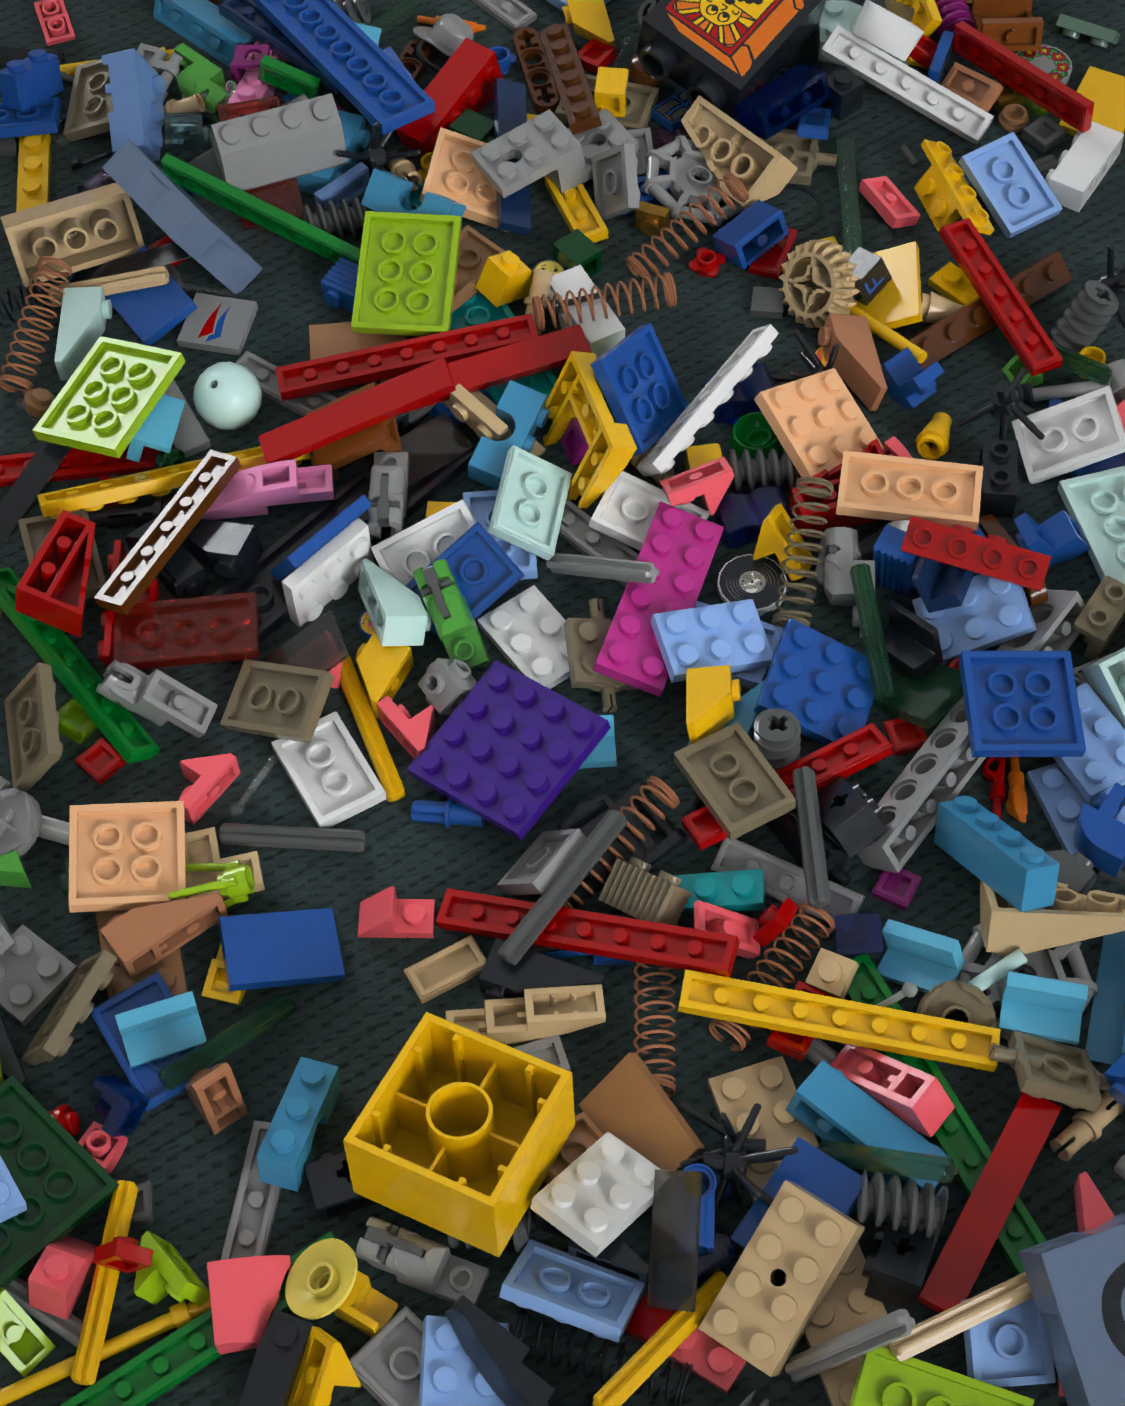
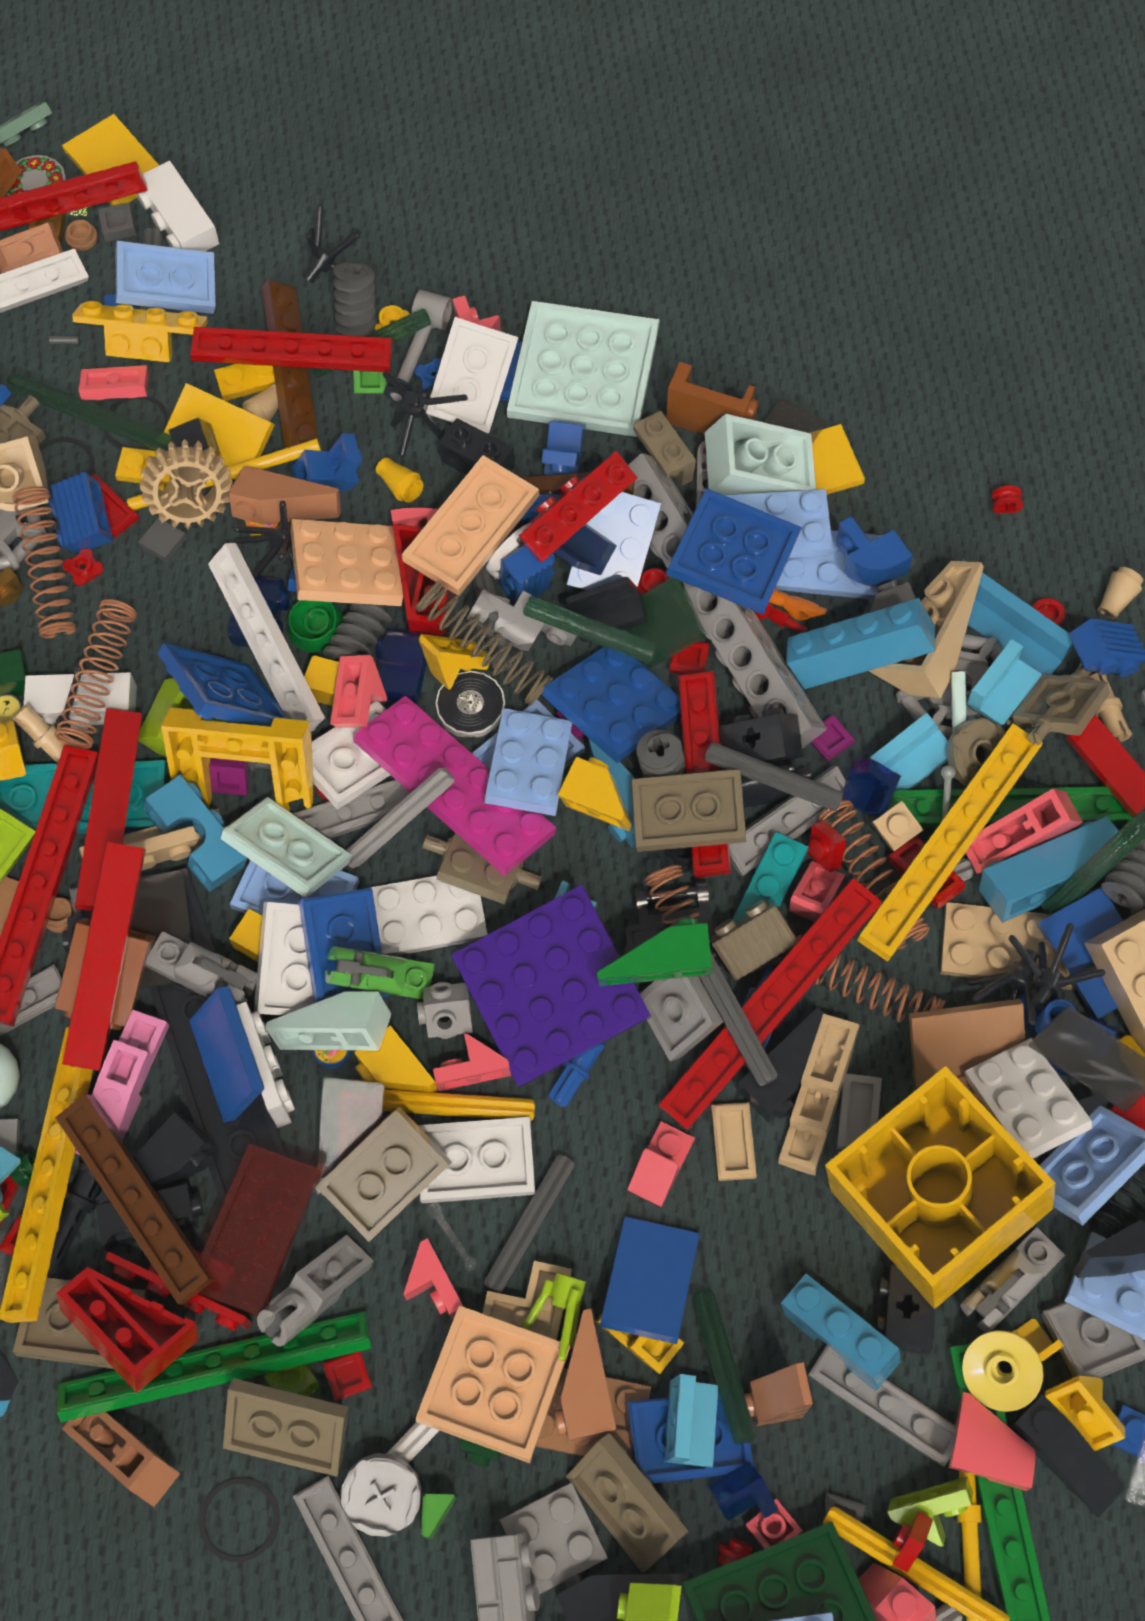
camera: 65 degrees left, 10 degrees up
(570, 807) = (671, 954): none -> green slope

